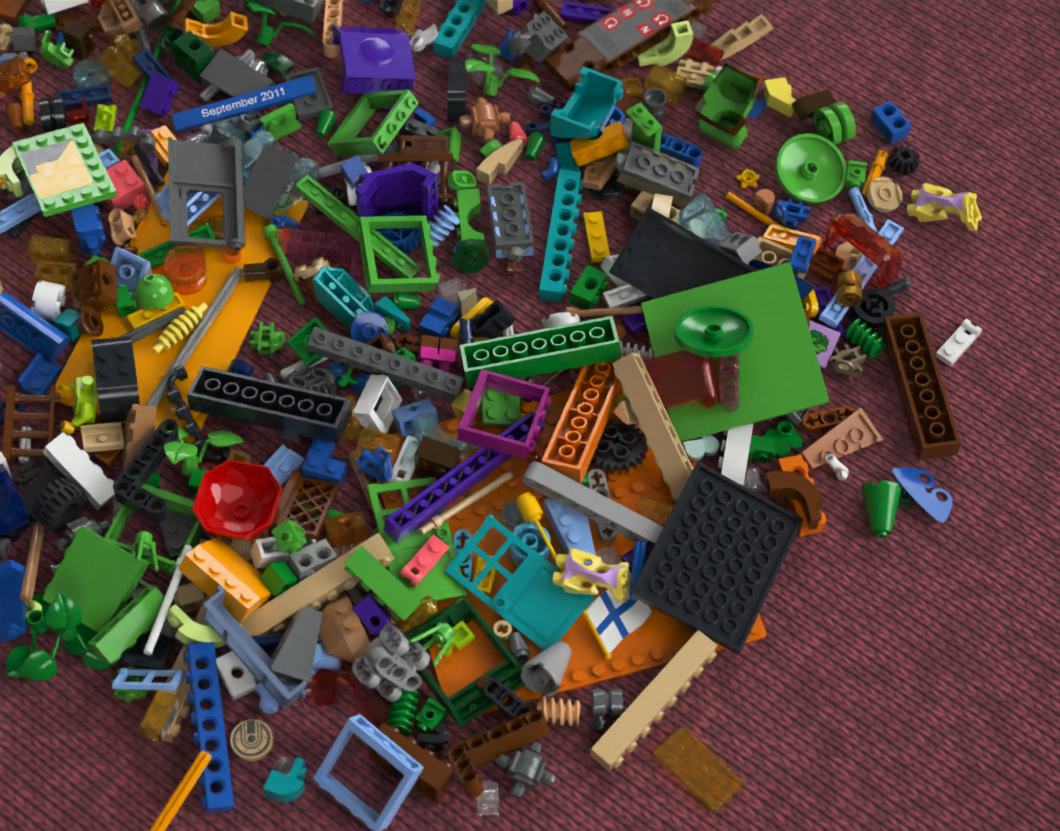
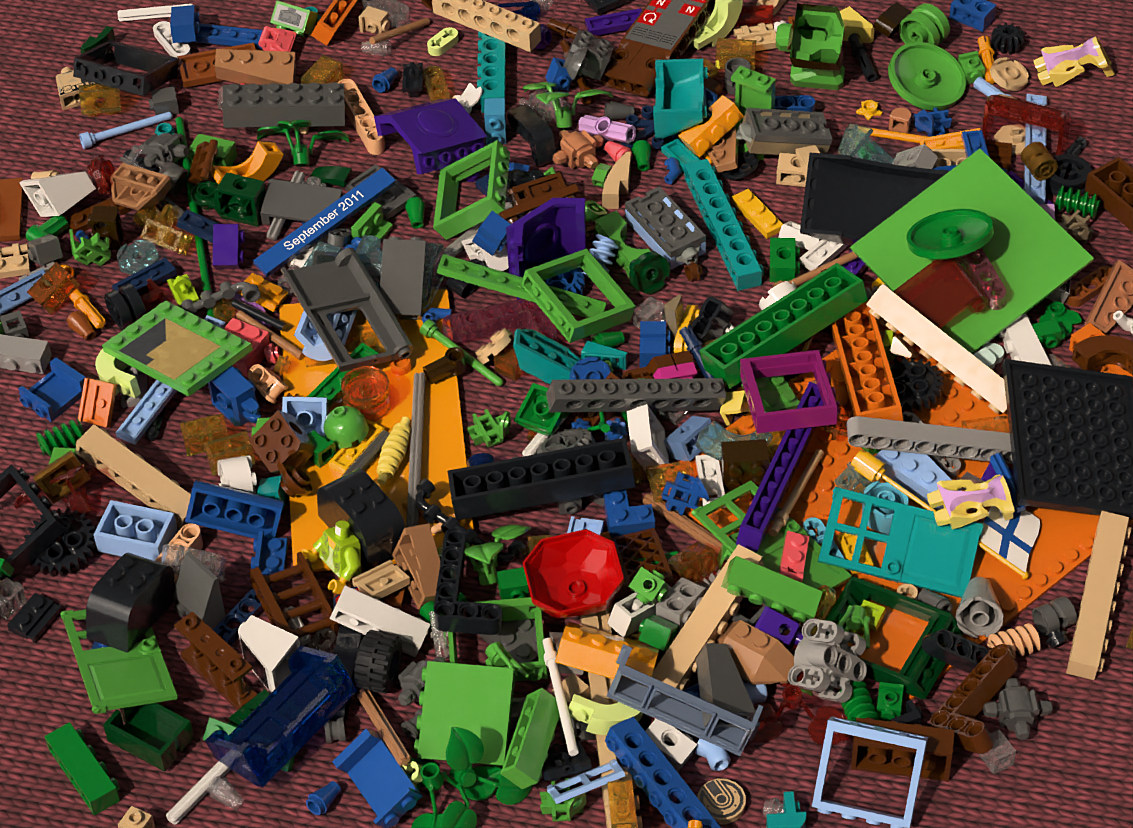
camera: 20 degrees left, 10 degrees down
(432, 67) = (495, 120): none -> dark azure brick
(517, 110) = (607, 129): none -> lavender piece
(771, 122) = (860, 51): none -> black pin

